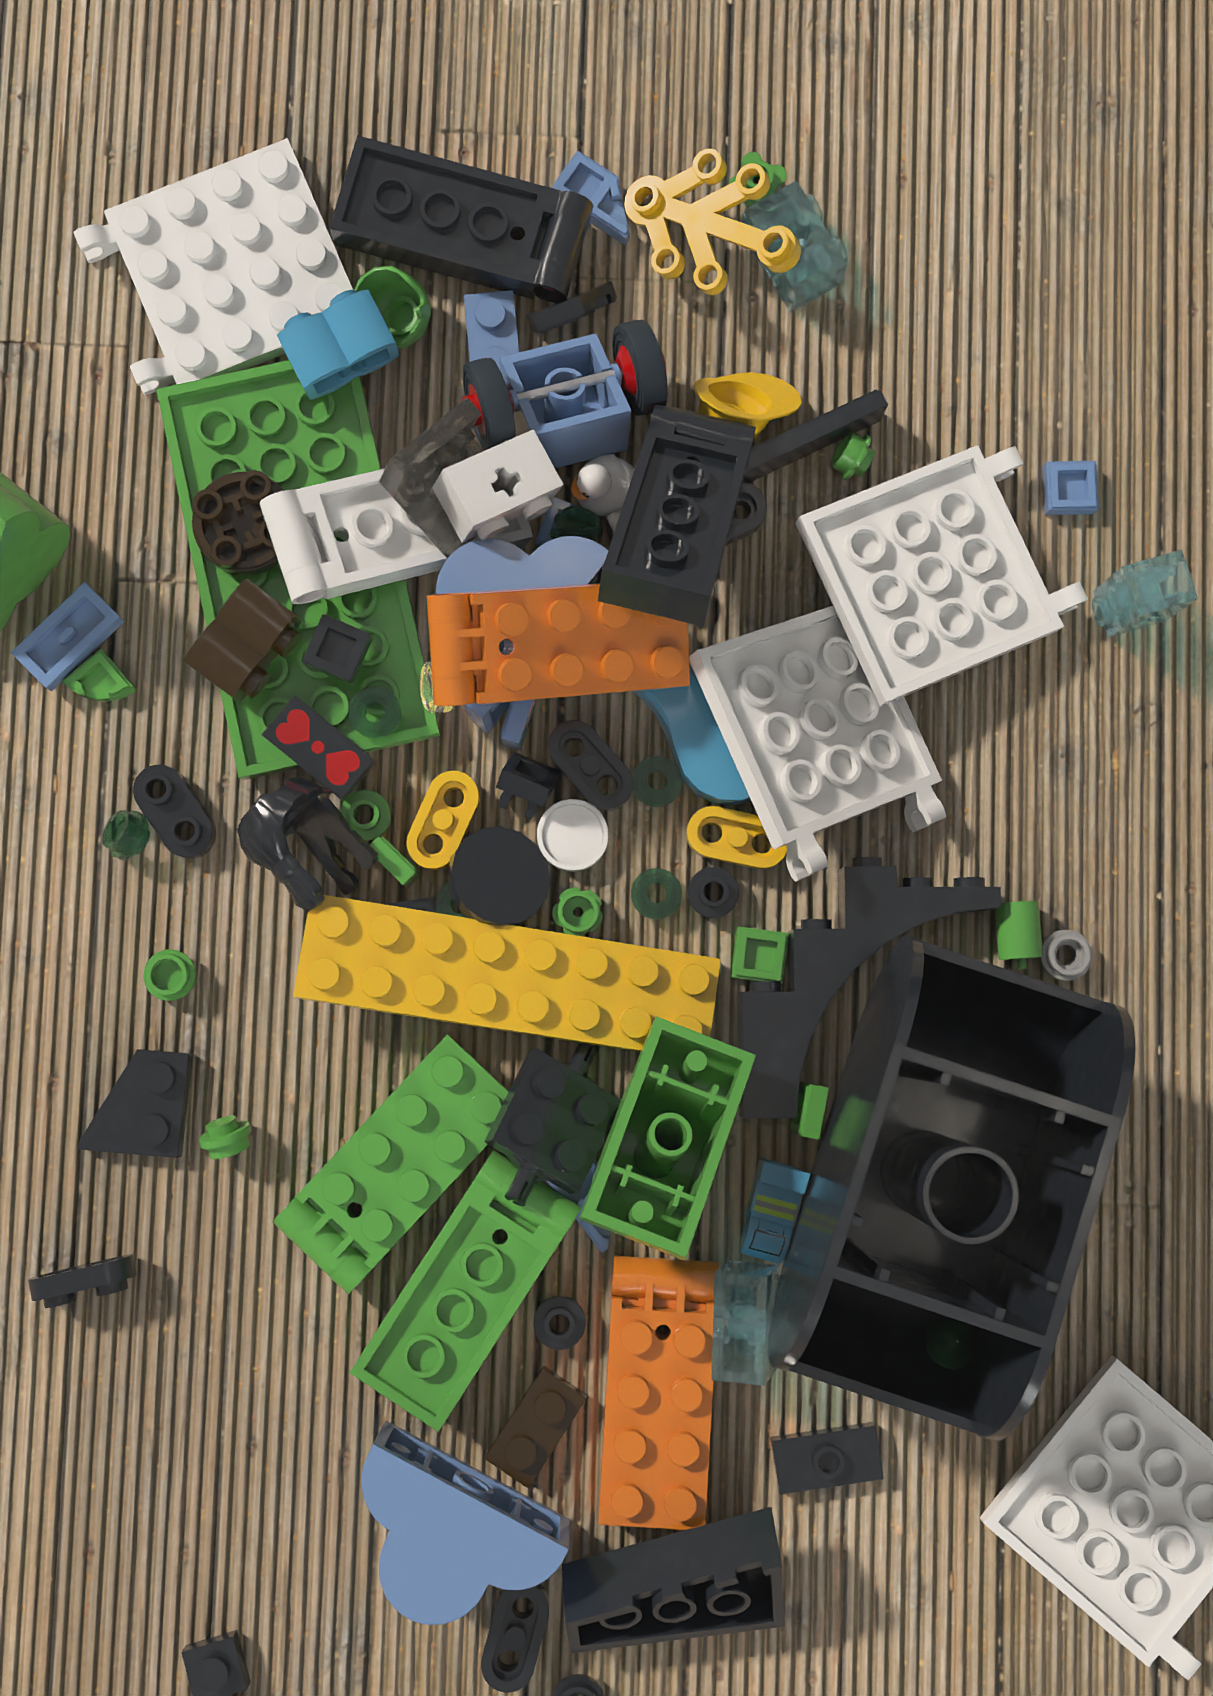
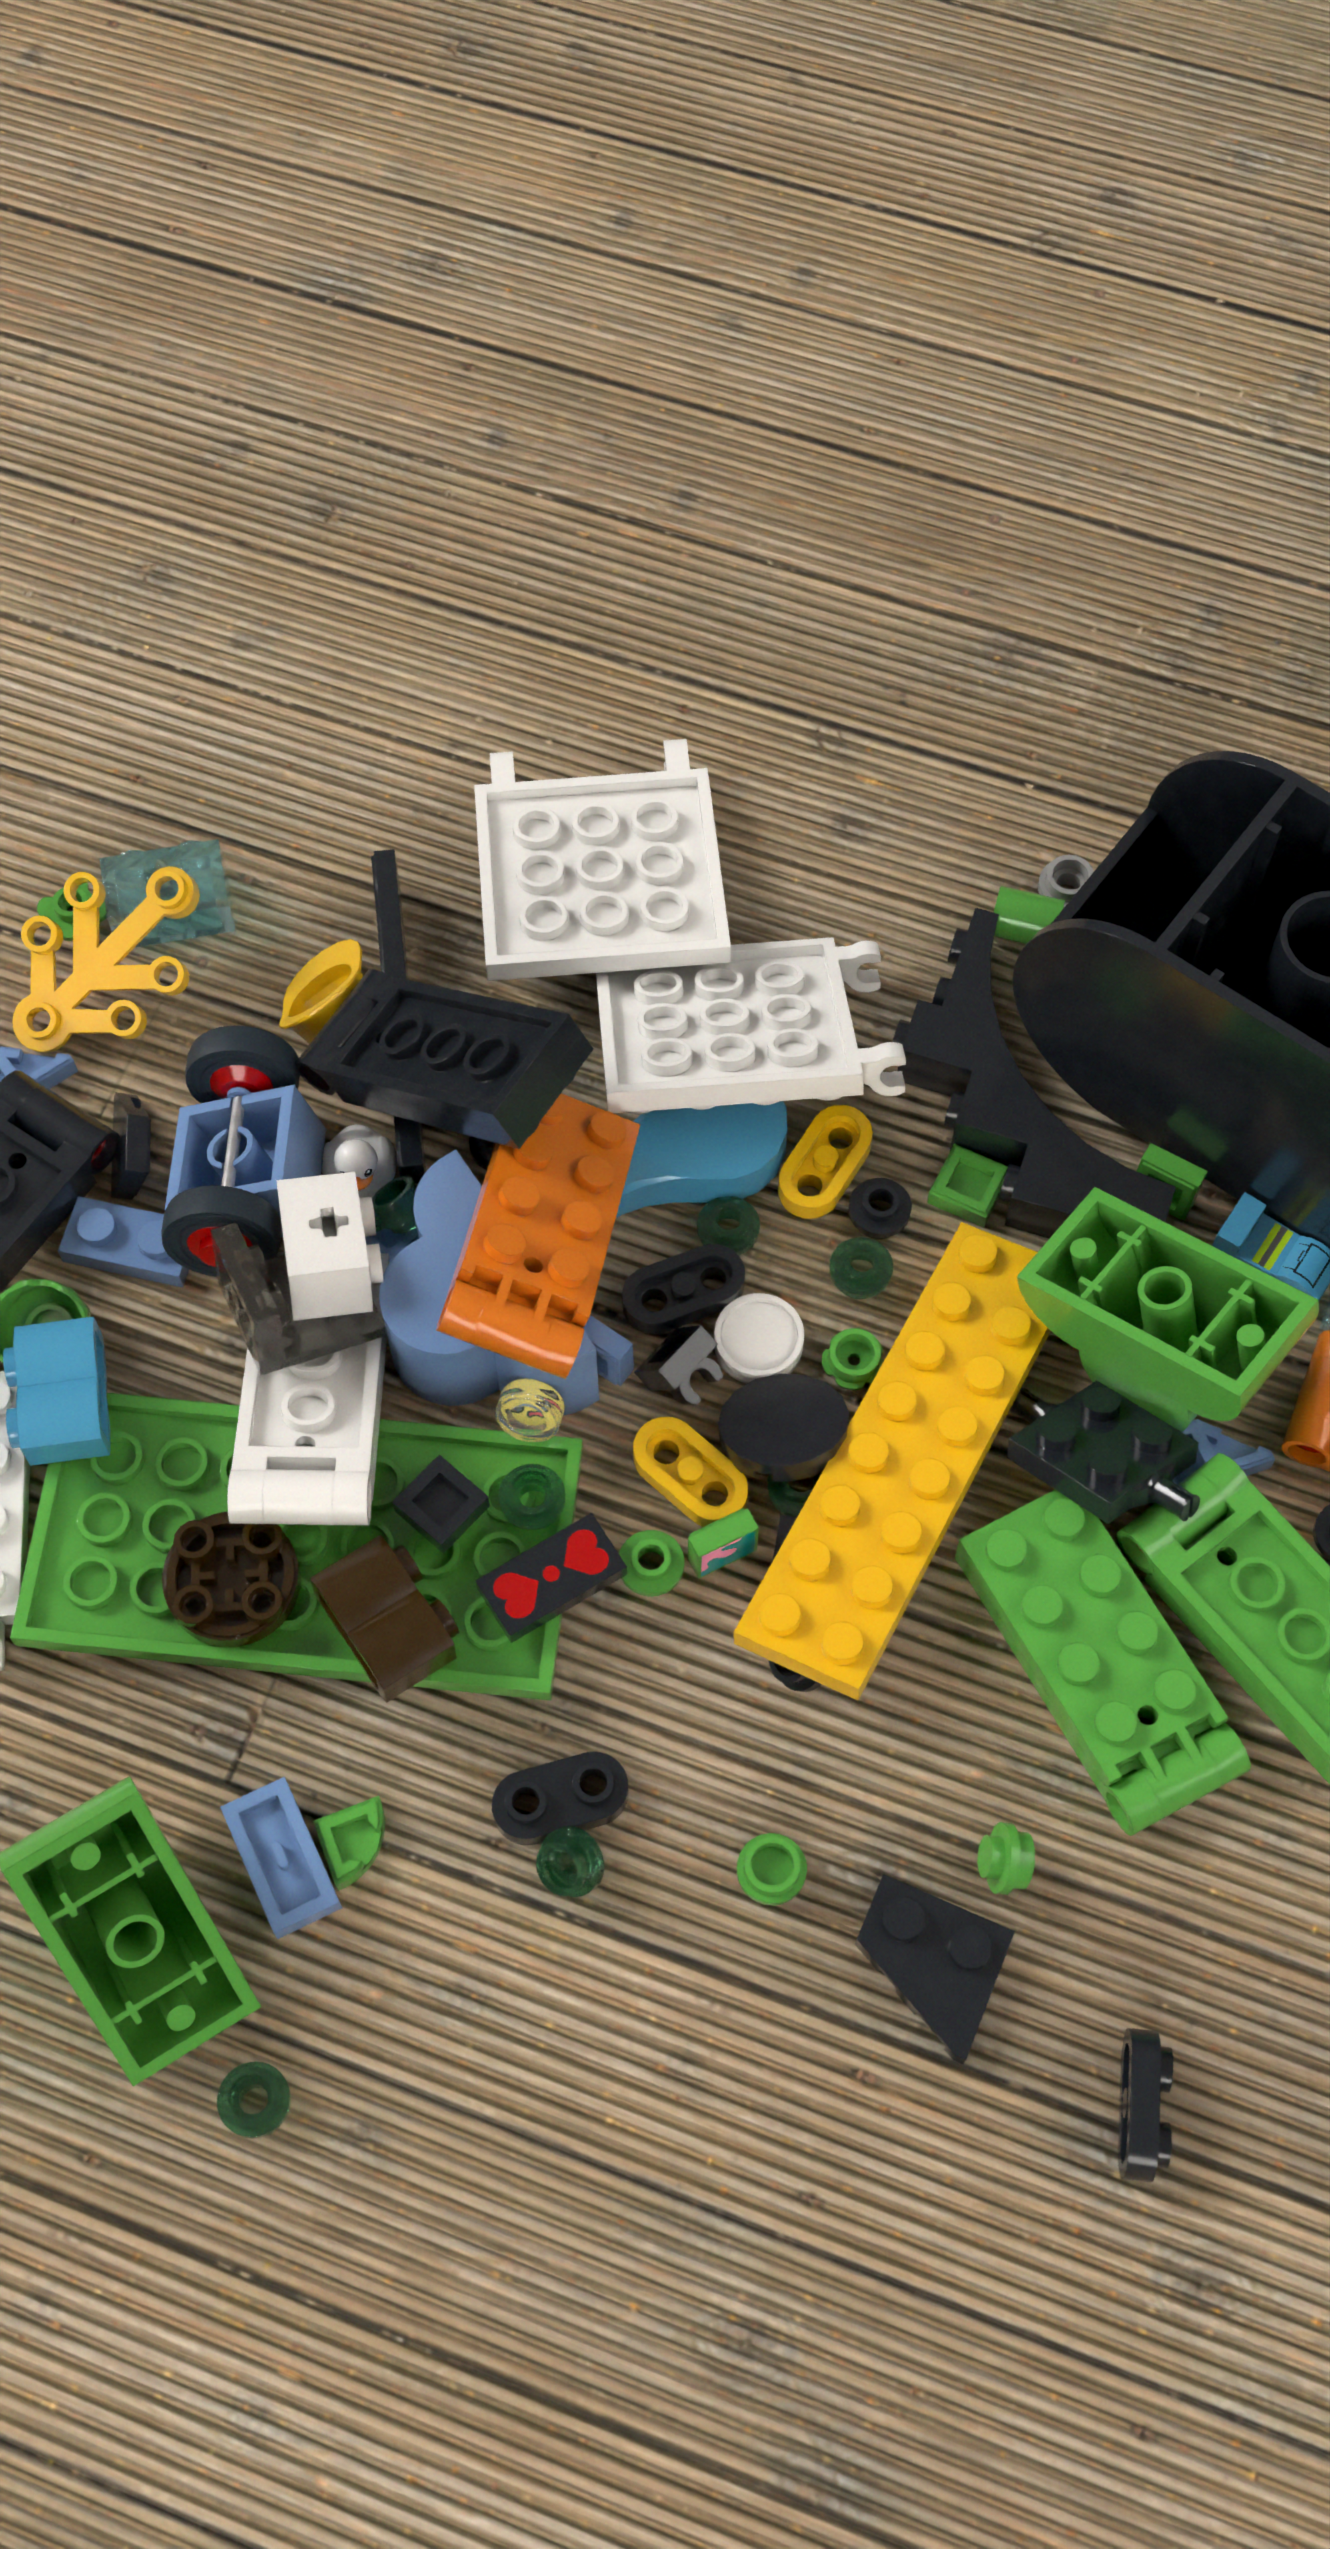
camera: 65 degrees left, 20 degrees down
(306, 811) = (651, 1645): black piece -> none
(853, 455) = (429, 913): bright green plate -> none
(1070, 487) = (553, 727): medium blue tile -> none
(1143, 594) = (704, 680): clear light blue brick -> none

